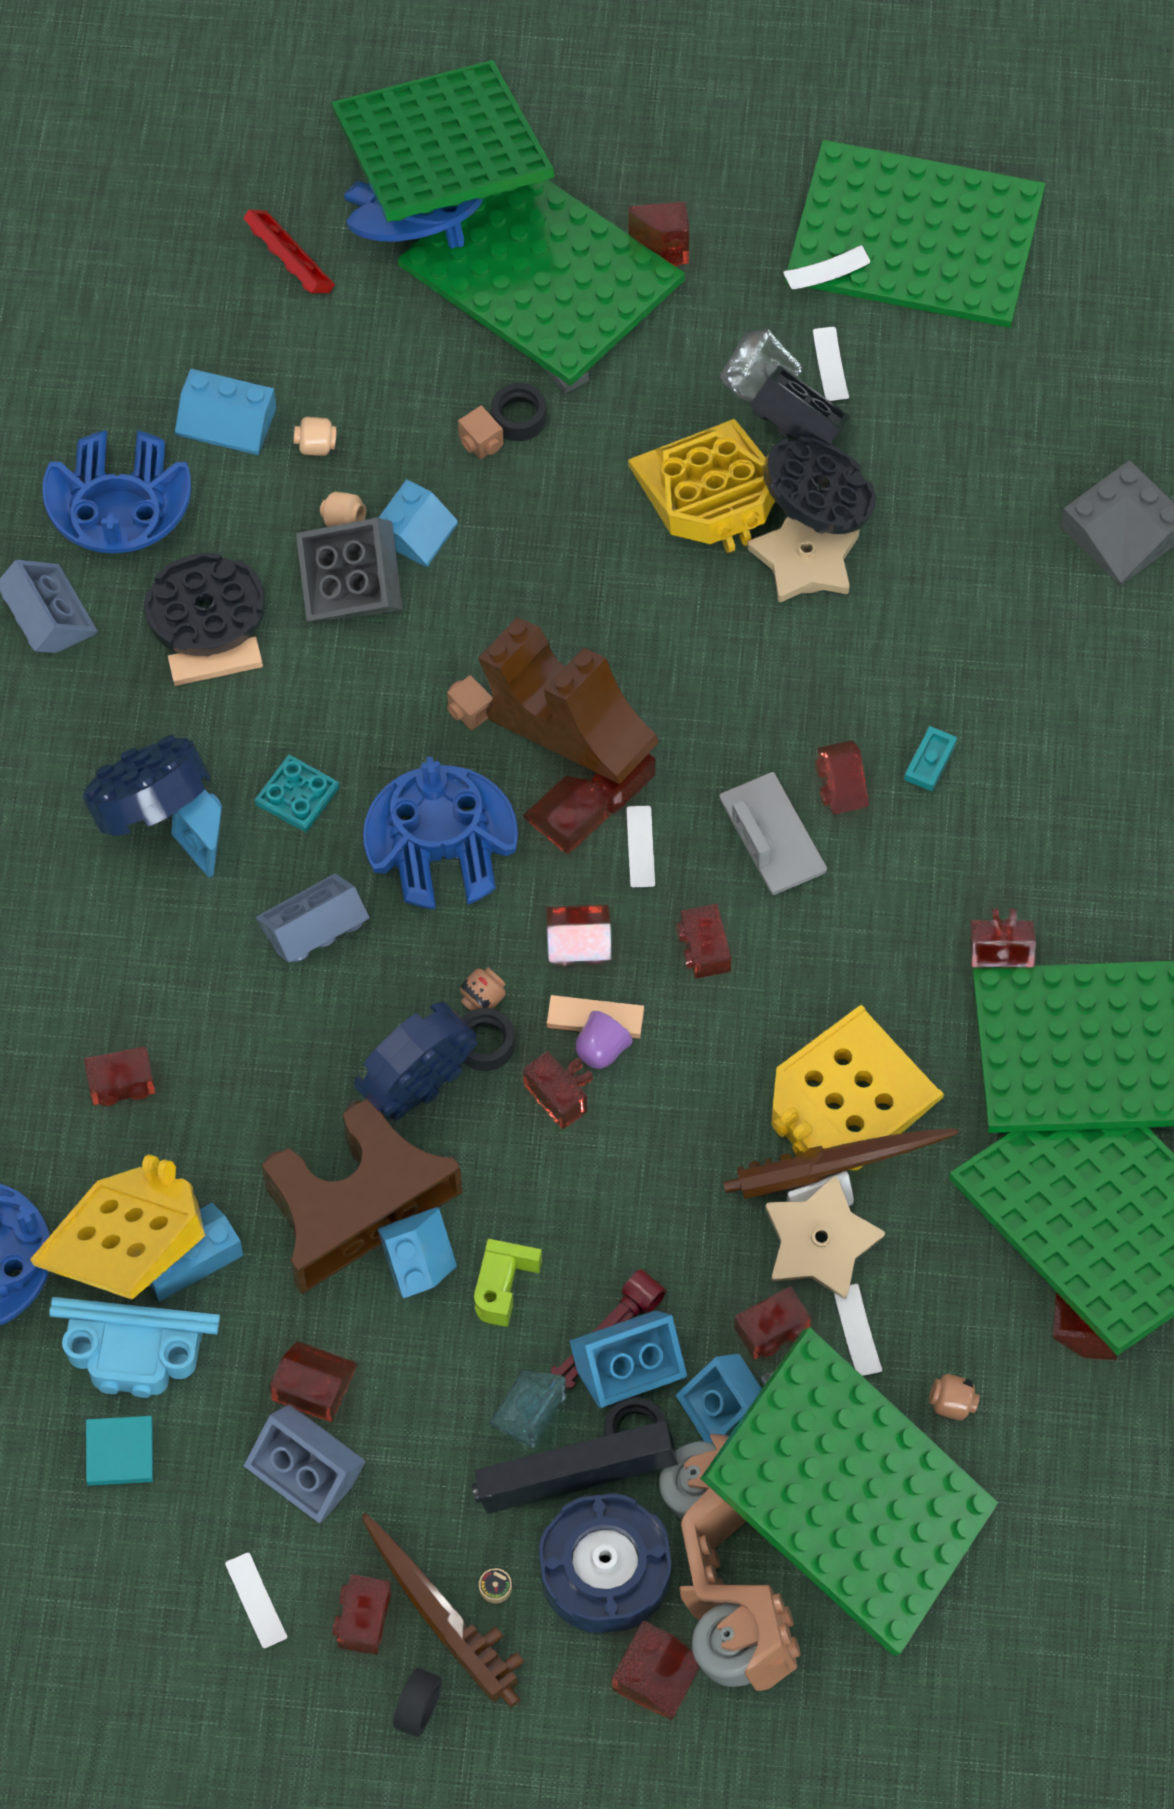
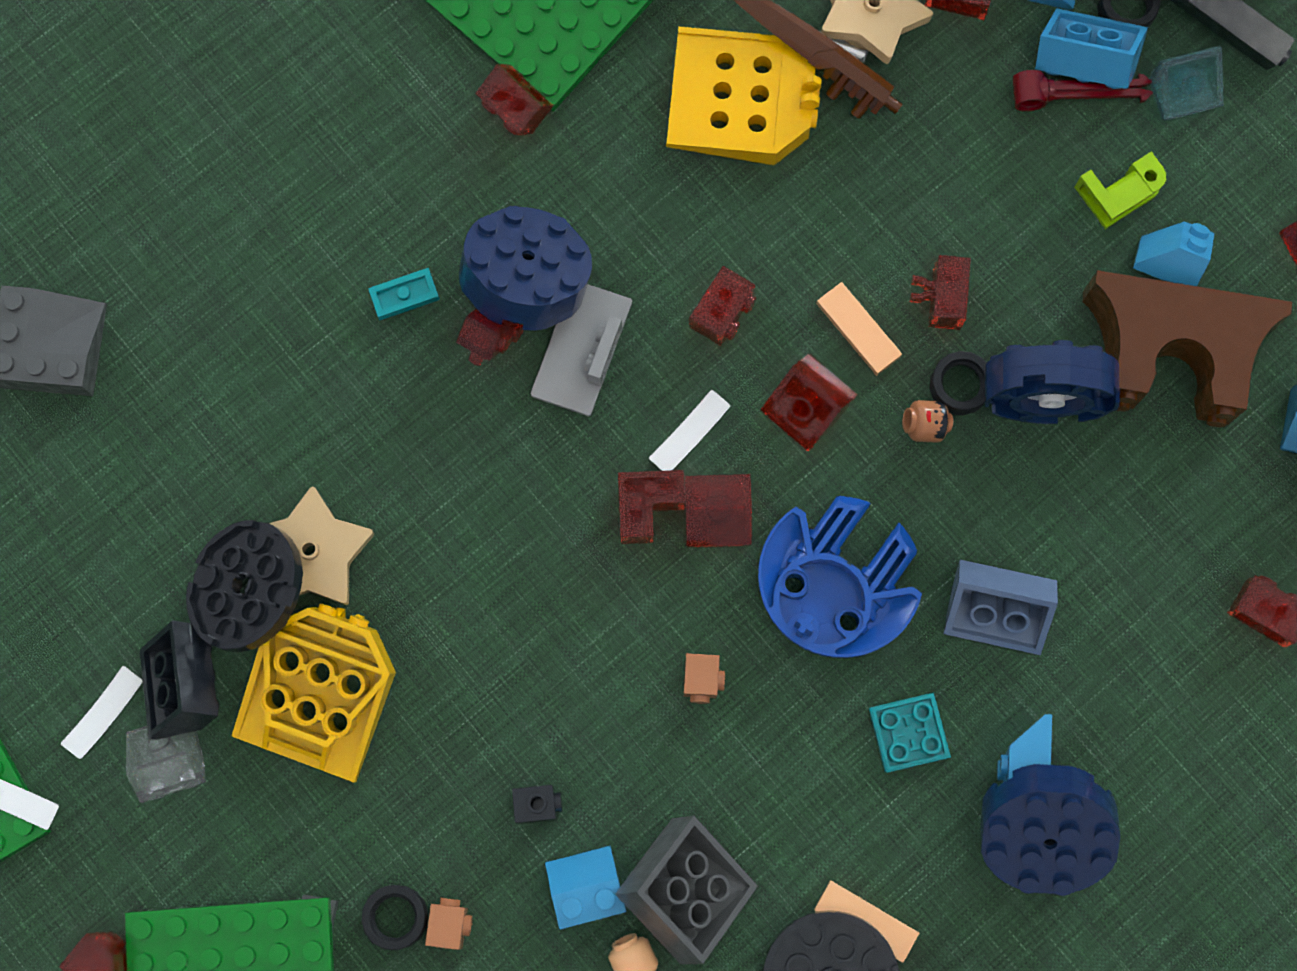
camera: 135 degrees left, 15 degrees up
(498, 541) = (536, 804): none -> black brick
(563, 708) = (654, 563): reddish brown piece -> none
(601, 1040) = (883, 296): medium lavender hair -> none
(891, 822) = (525, 267): none -> dark blue piece

